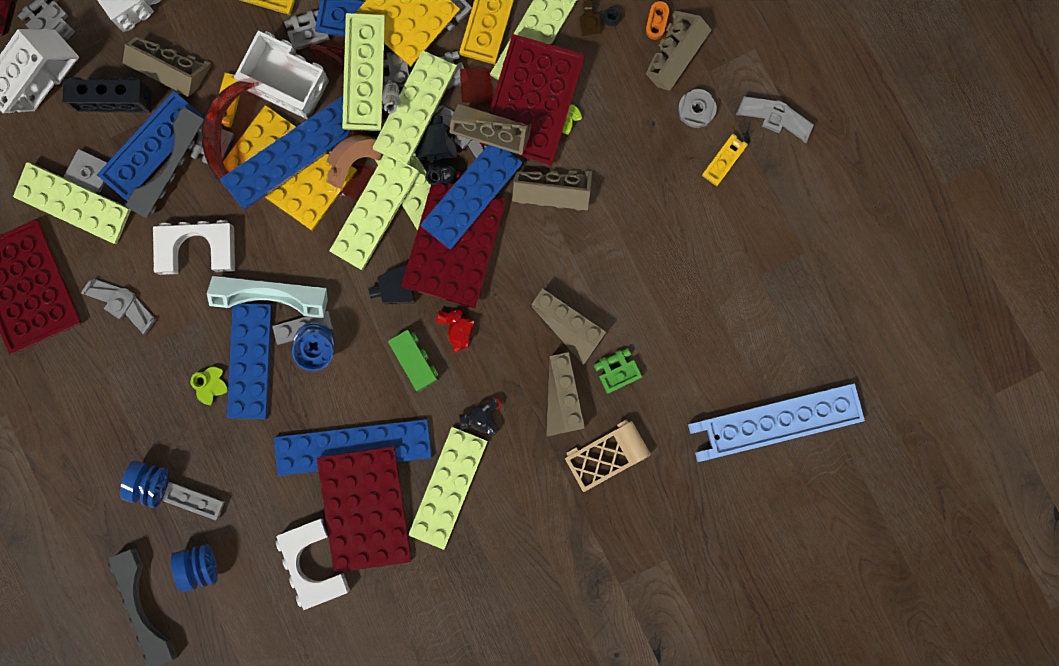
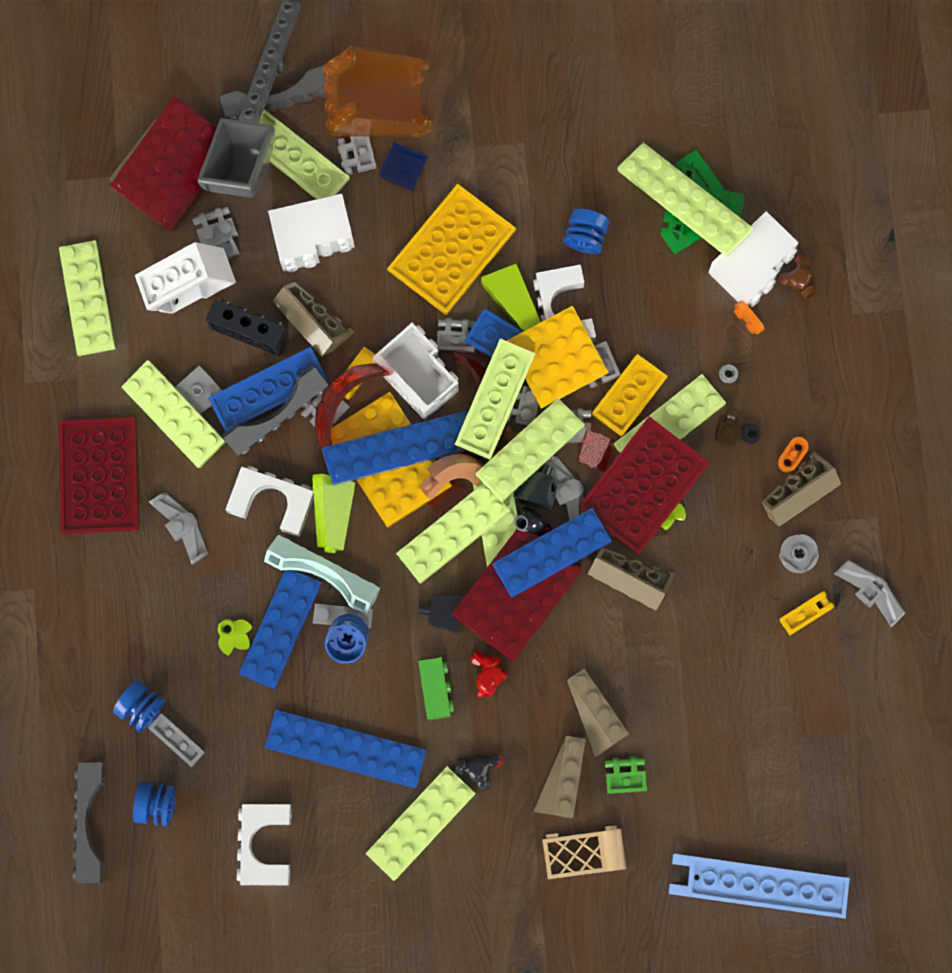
camera: 20 degrees right, 5 degrees down
(254, 235) = (331, 512): none -> lime slope
(364, 509) = (333, 812): dark red plate -> none
(390, 96) = (511, 431): light grey hinge -> none
(489, 129) = (593, 498): dark tan wedge -> none

